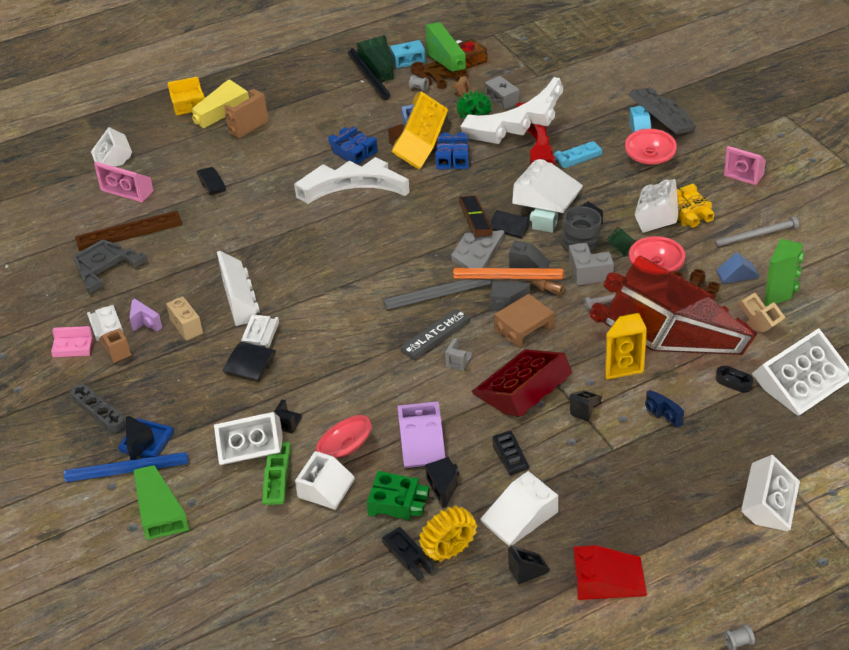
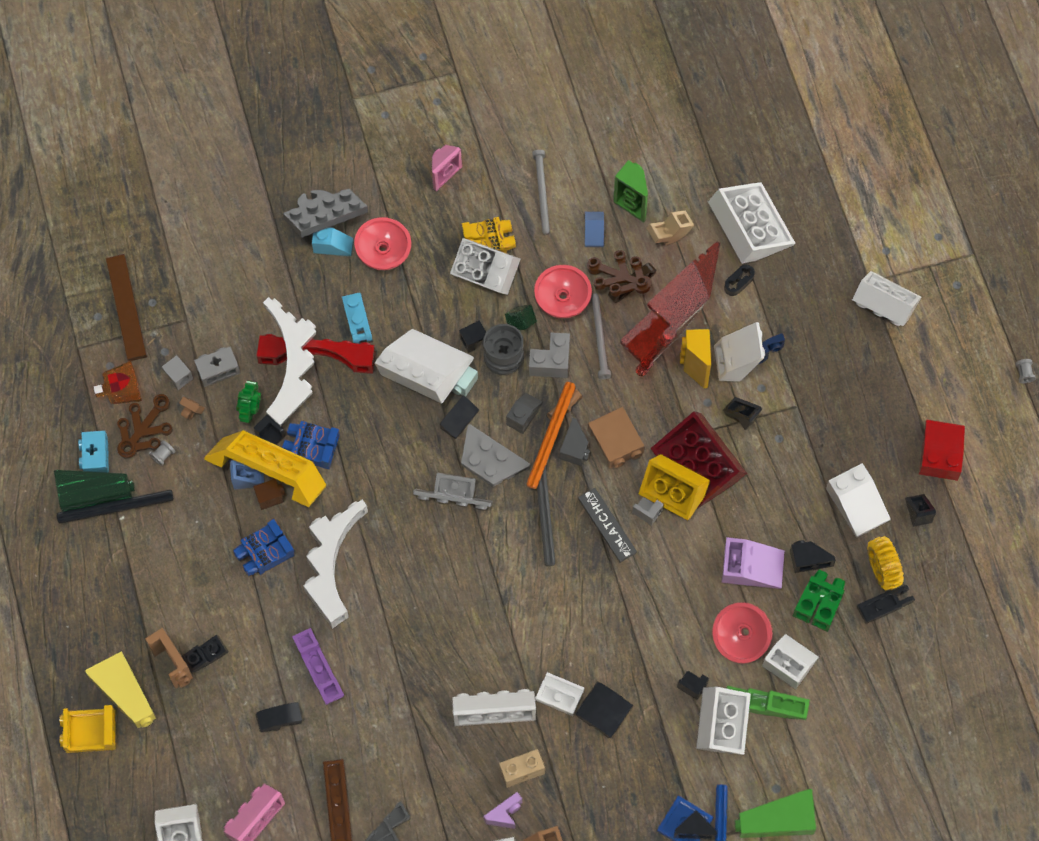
camera: 80 degrees left, 25 degrees up
(257, 137) = (205, 654): none -> black slope
(274, 185) = (318, 666): none -> medium lavender slope
(436, 233) = (454, 489): none -> light grey bracket
(443, 47) = (116, 407): bright green slope -> none
(455, 123) = (269, 430): none -> black panel
(475, 216) = (438, 446): tile -> none
(486, 363) = (674, 486): none -> yellow slope
(487, 73) = (177, 372): none -> light grey panel
(505, 441) = (773, 501): black slope -> none
(535, 46) = (126, 307): none -> reddish brown tile
(637, 381) = (739, 353): none -> white slope

